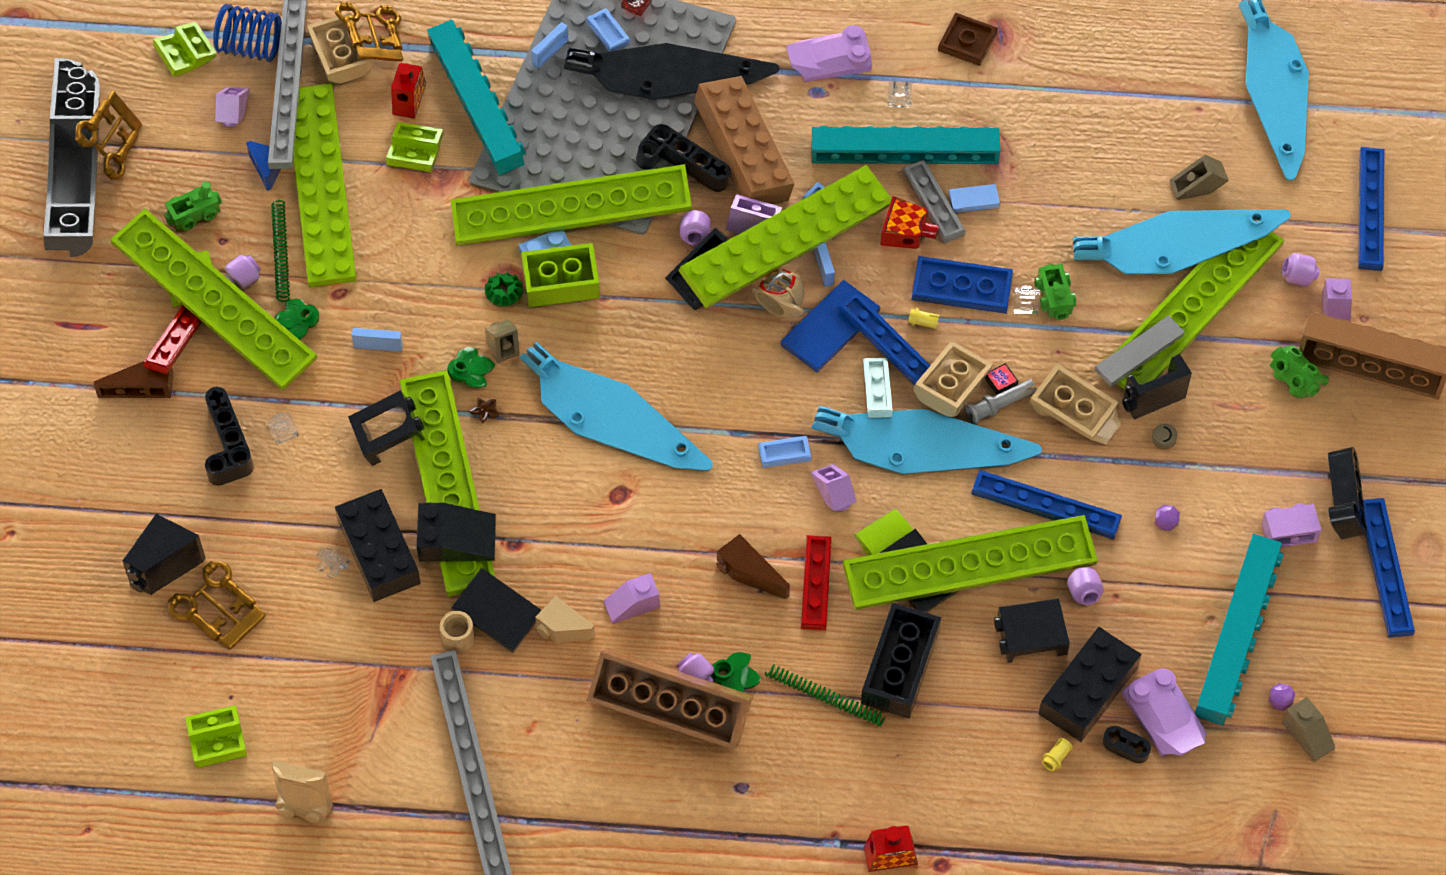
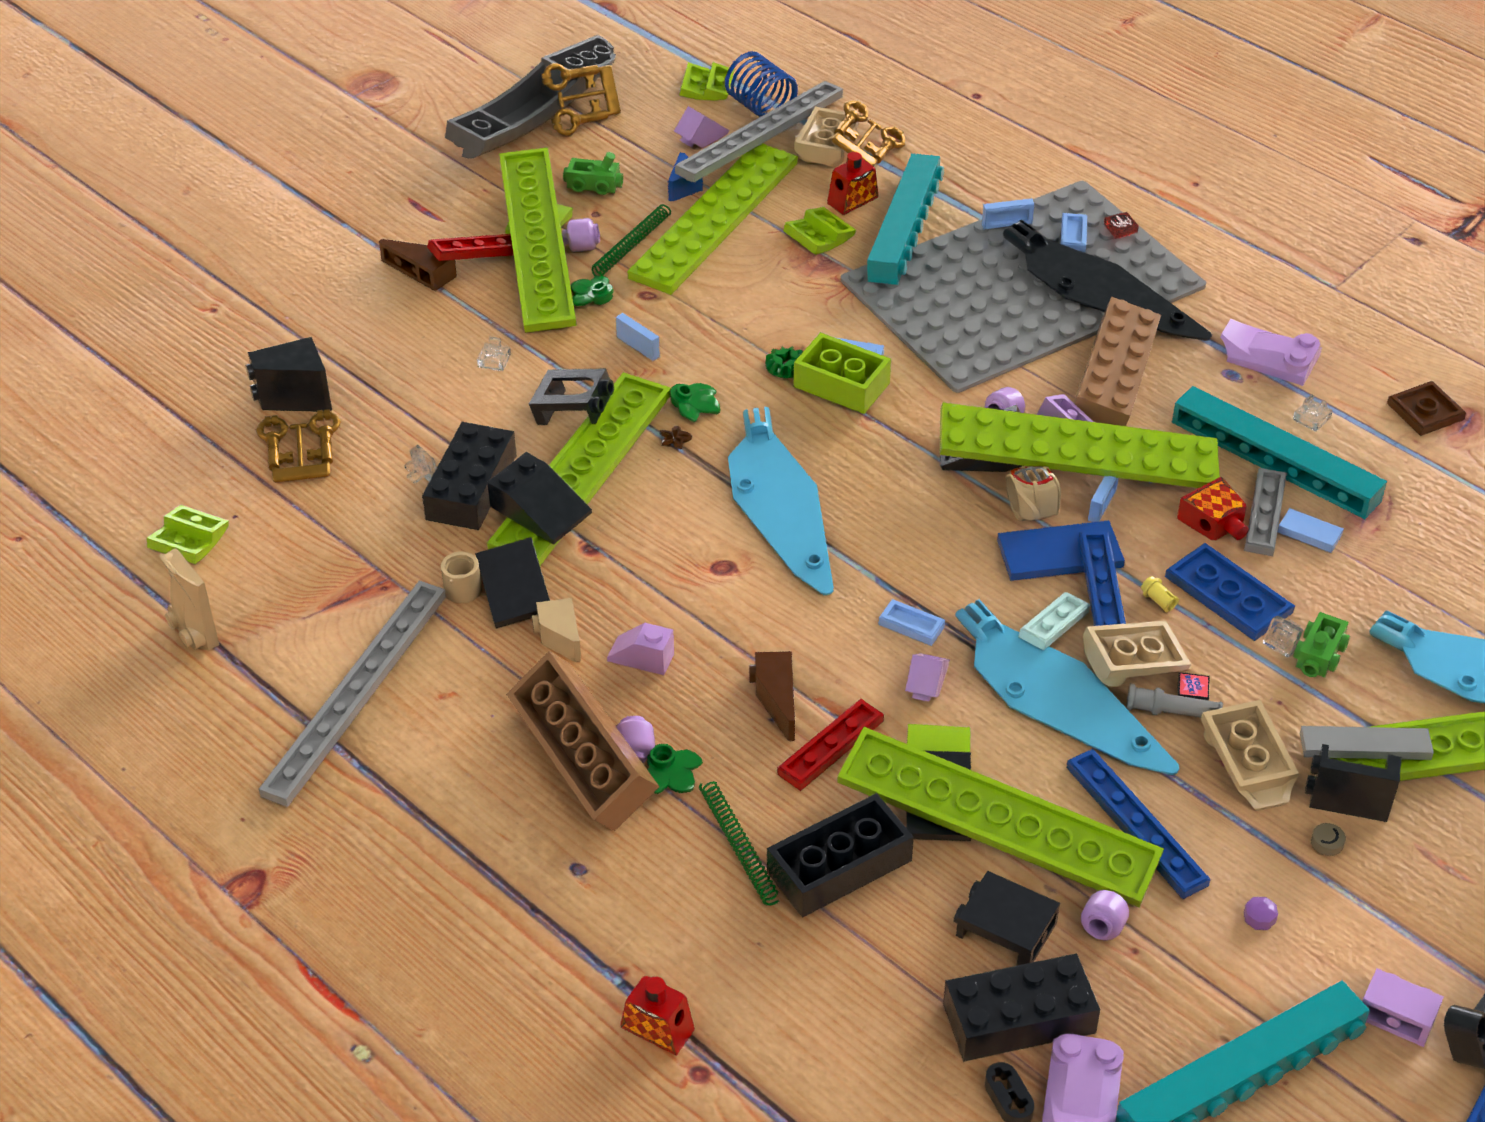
camera: 40 degrees right, 15 degrees down
(226, 432) = (436, 349): black beam -> none
(502, 340) = (739, 392): dark tan slope -> none
(571, 205) = (909, 331): lime plate -> none
(712, 172) = (1040, 330): black beam -> none
(1054, 758) = (921, 1051): light yellow pin -> none

